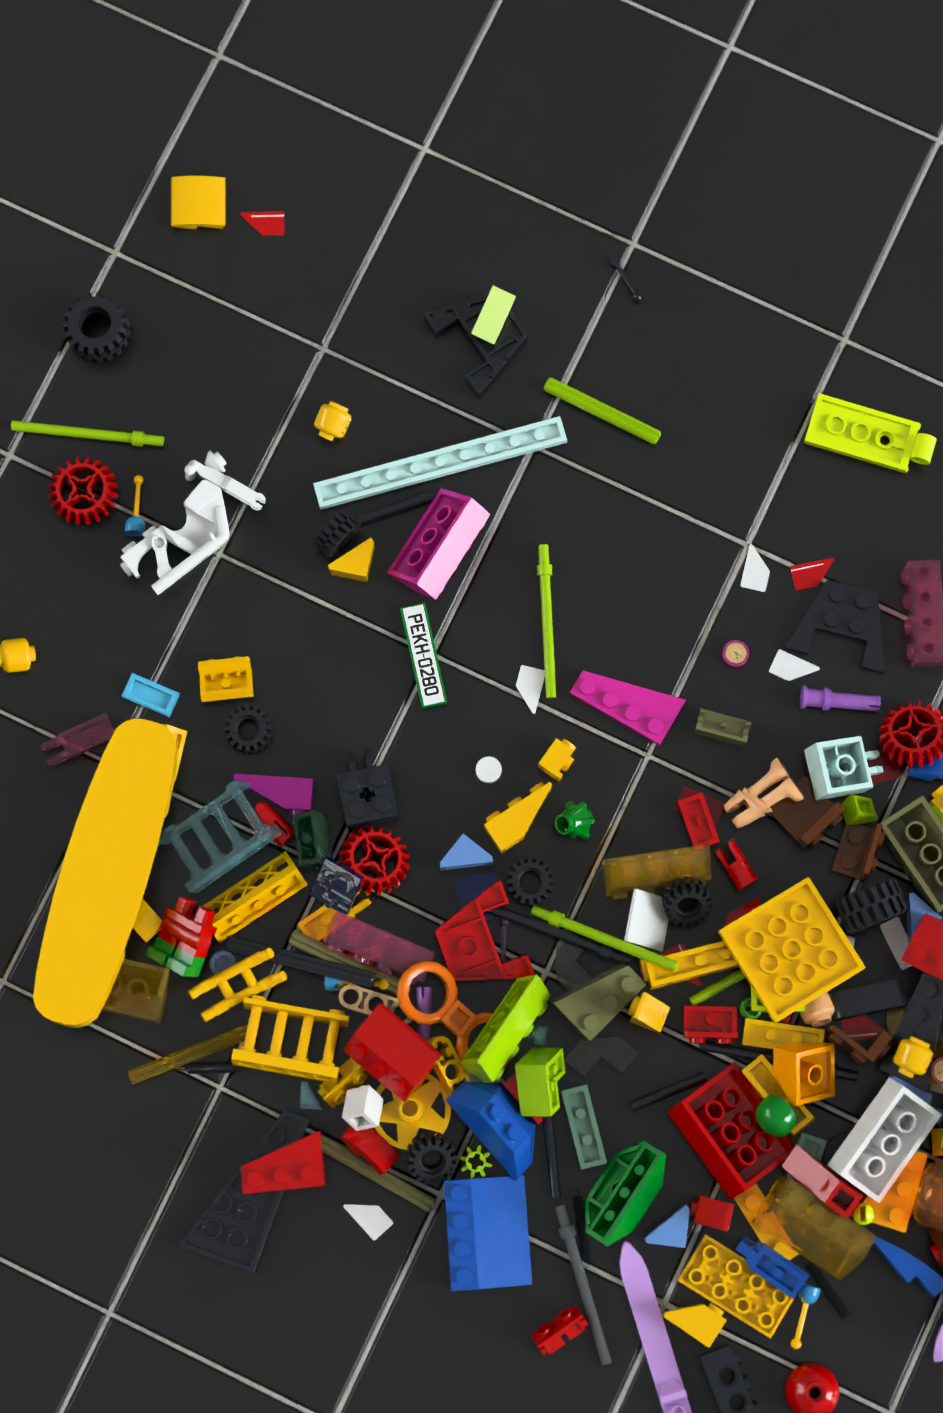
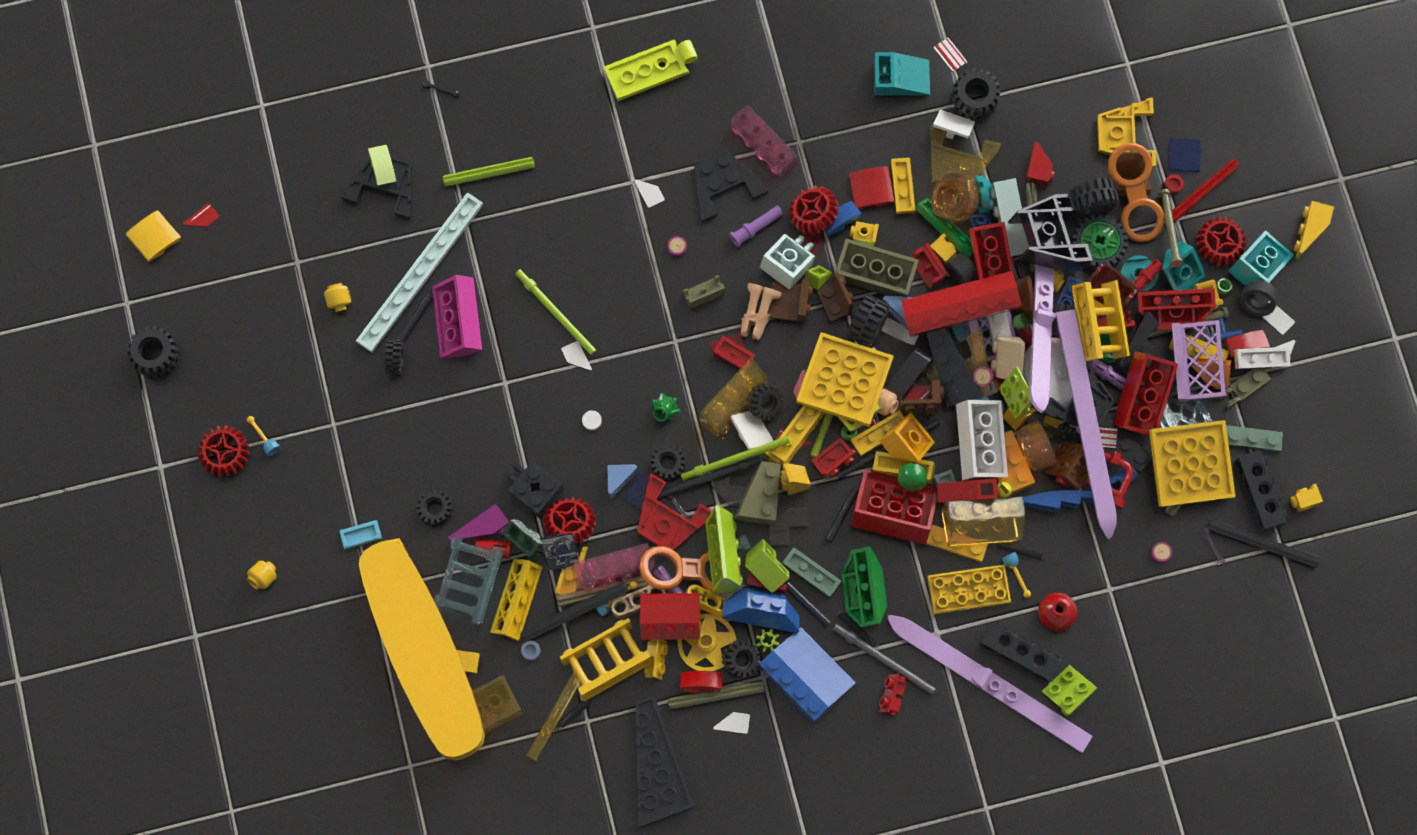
camera: 40 degrees left, 5 degrees down
(80, 739) = (340, 591): clear pink hinge -> none
(137, 438) = (230, 397): lime bar -> none
(184, 938) = (496, 652): red hips -> none
(204, 528) = (313, 412): white piece -> none
(225, 679) = (397, 489): yellow bracket -> none
(231, 999) = (551, 665): yellow piece -> none
(287, 1168) = (665, 730): red wedge -> none
(308, 1100) = (644, 684): clear light blue slope -> none
(354, 563) = (418, 366): yellow slope -> none
(362, 1108) = (679, 662): white brick -> none
(423, 655) = (501, 387): tile -> none
(512, 825) = (631, 437): yellow slope -> none
(557, 758) = (626, 382): yellow brick -> none
(630, 705) = (645, 320): dark pink wing -> none
(672, 1230) = (908, 589): medium blue slope -> none
(698, 1321) = (965, 625): yellow slope -> none
(711, 1213) = (922, 559): red slope -> none
(738, 870) = (779, 362): red hinge -> none
(773, 1266) = (979, 560): blue hinge -> none
(790, 666) = (713, 229): white sticker -> none
(810, 574) = (681, 170): red sticker -> none
(913, 1057) = (959, 382): yellow head -> none

